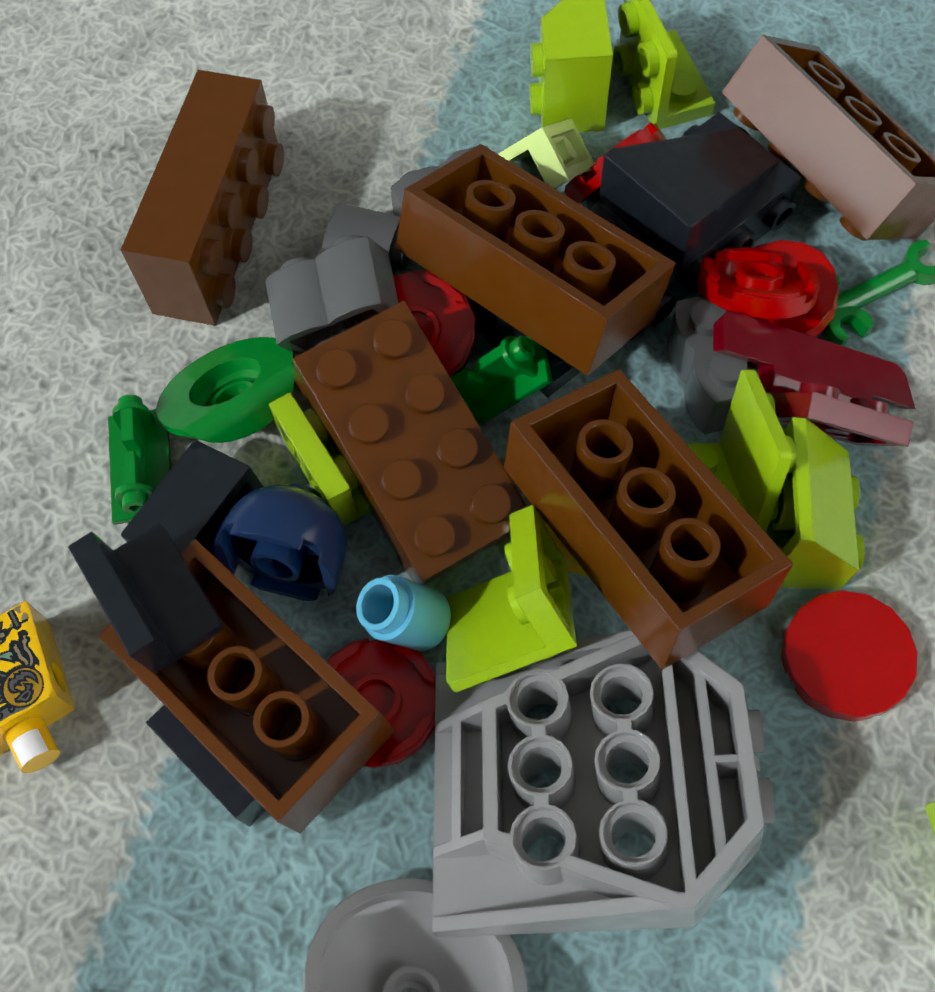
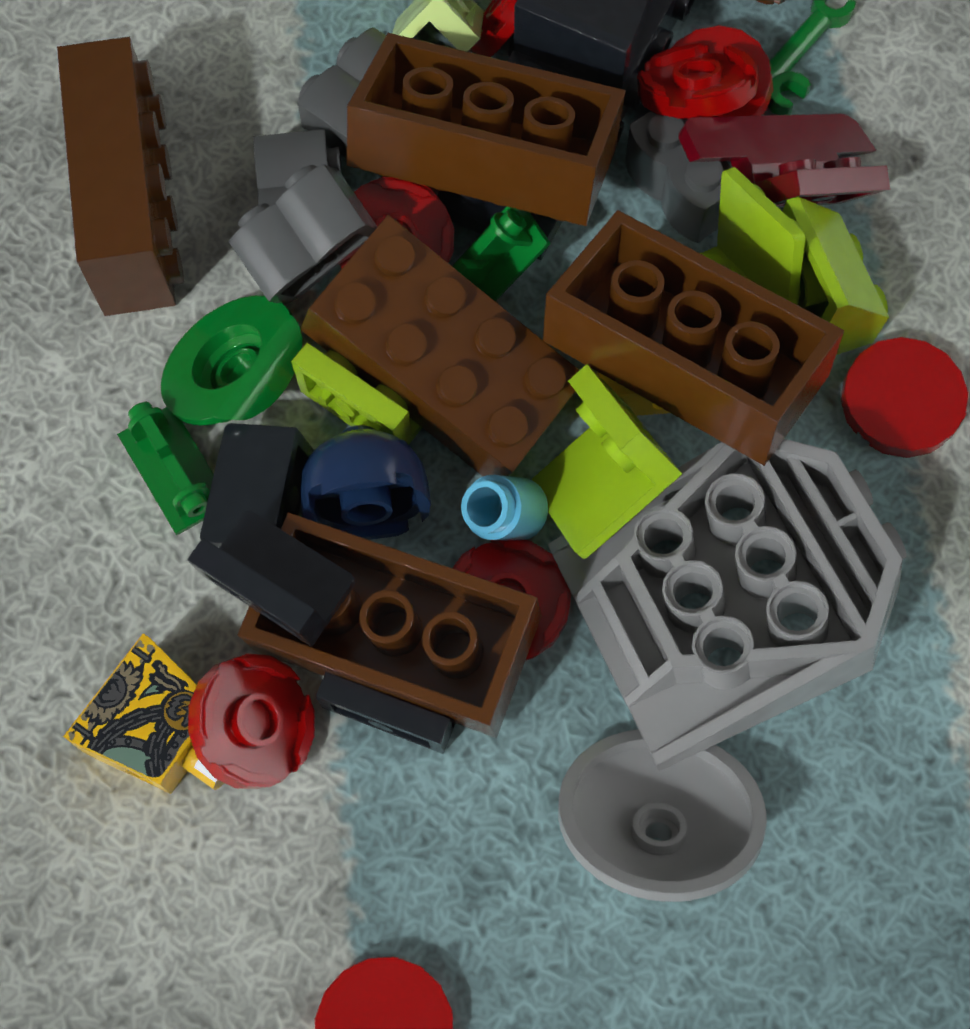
camera: 25 degrees left, 5 degrees up
(80, 722) = (251, 721): none -> red tile

